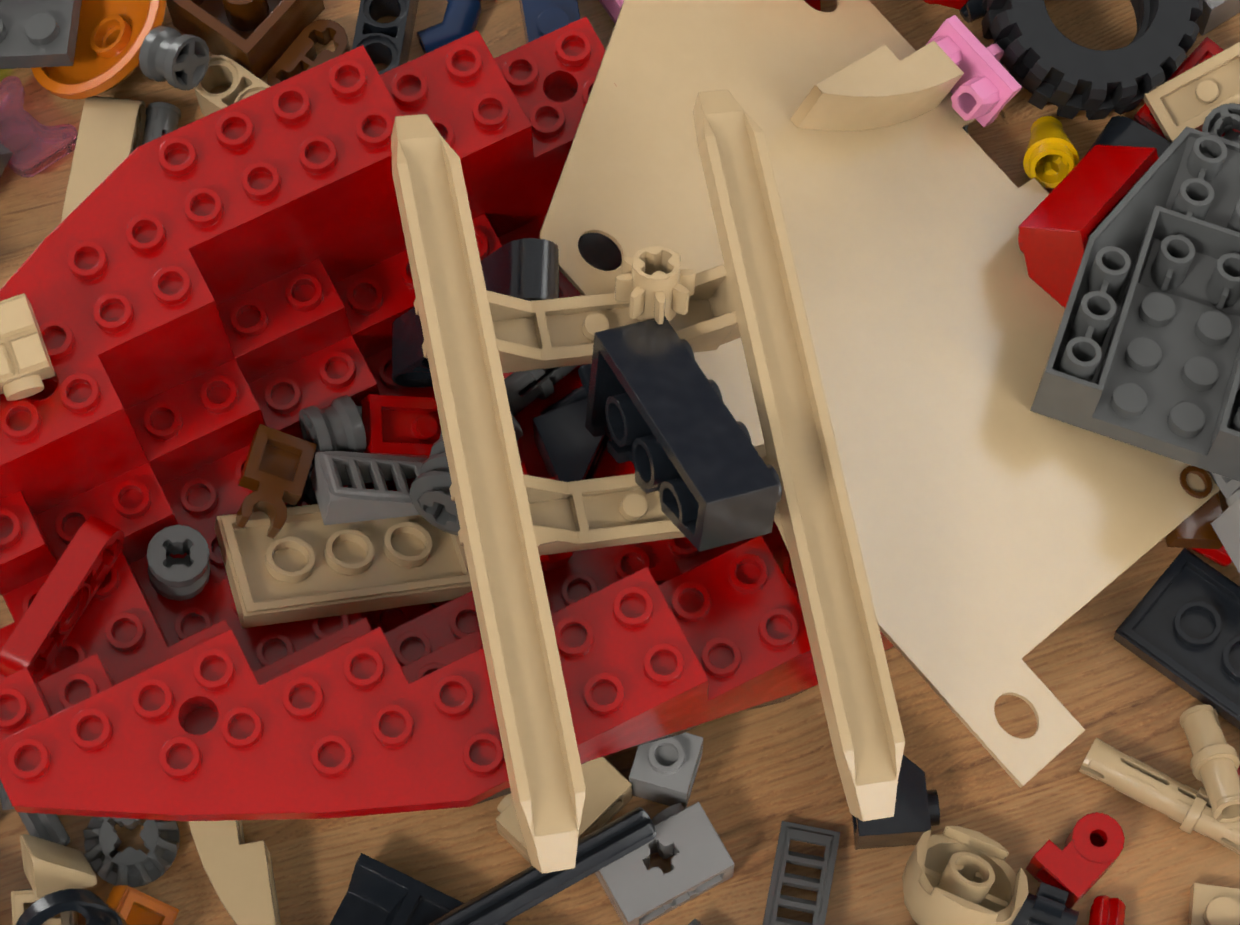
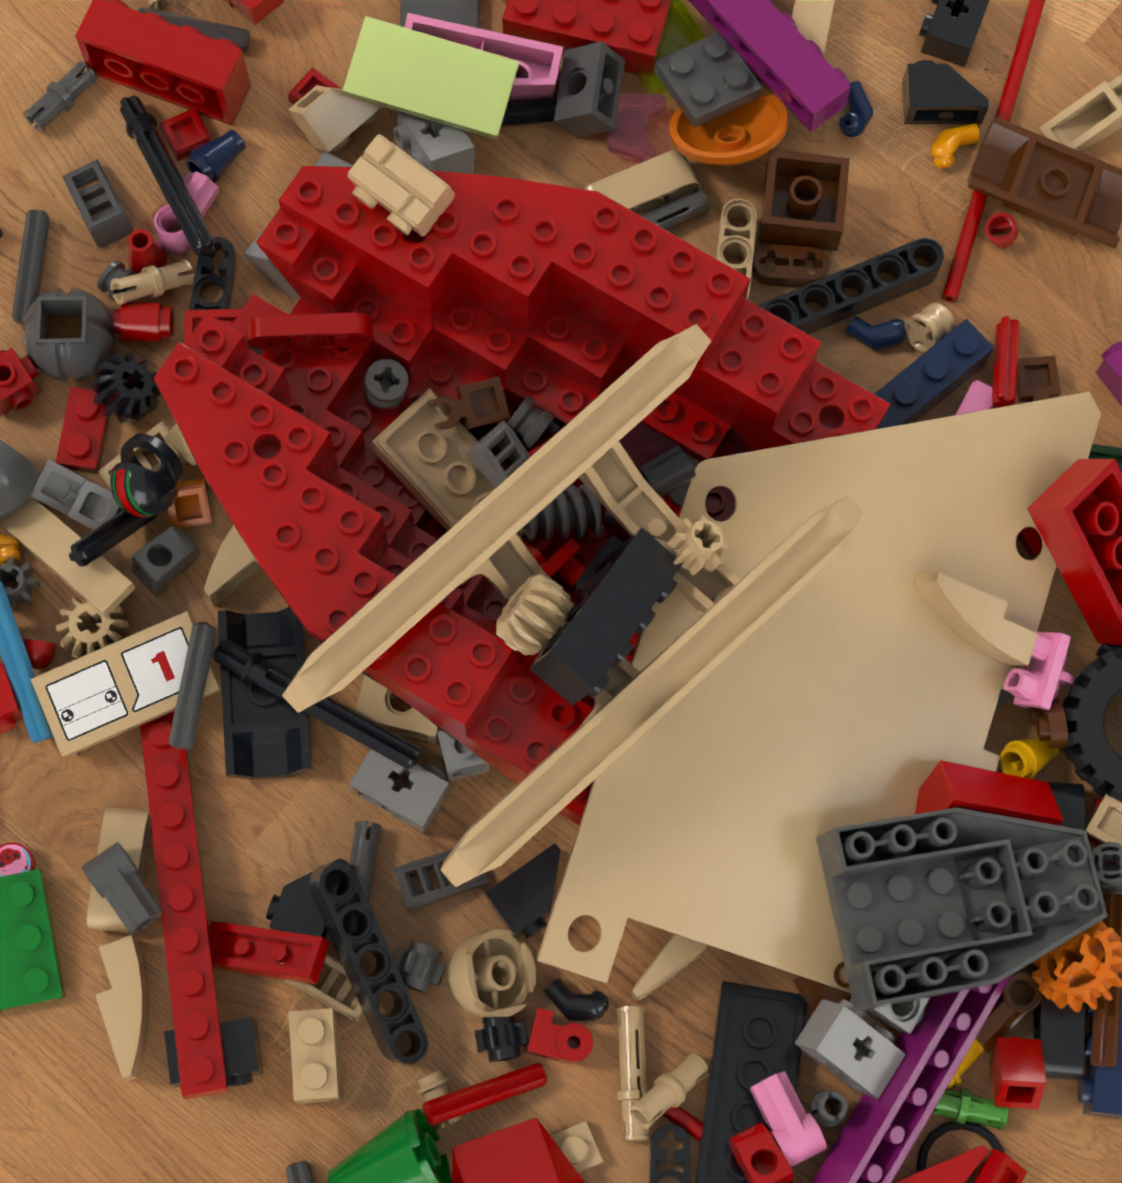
camera: 55 degrees right, 5 degrees up
(174, 58) = (730, 182): dark grey wheel -> none
(626, 516) = (533, 615): none -> tan gear
(1036, 104) = (1050, 724): none -> reddish brown plate
(1051, 815) = (577, 1006): none -> black arm
(1059, 668) = (671, 960): none -> tan slope

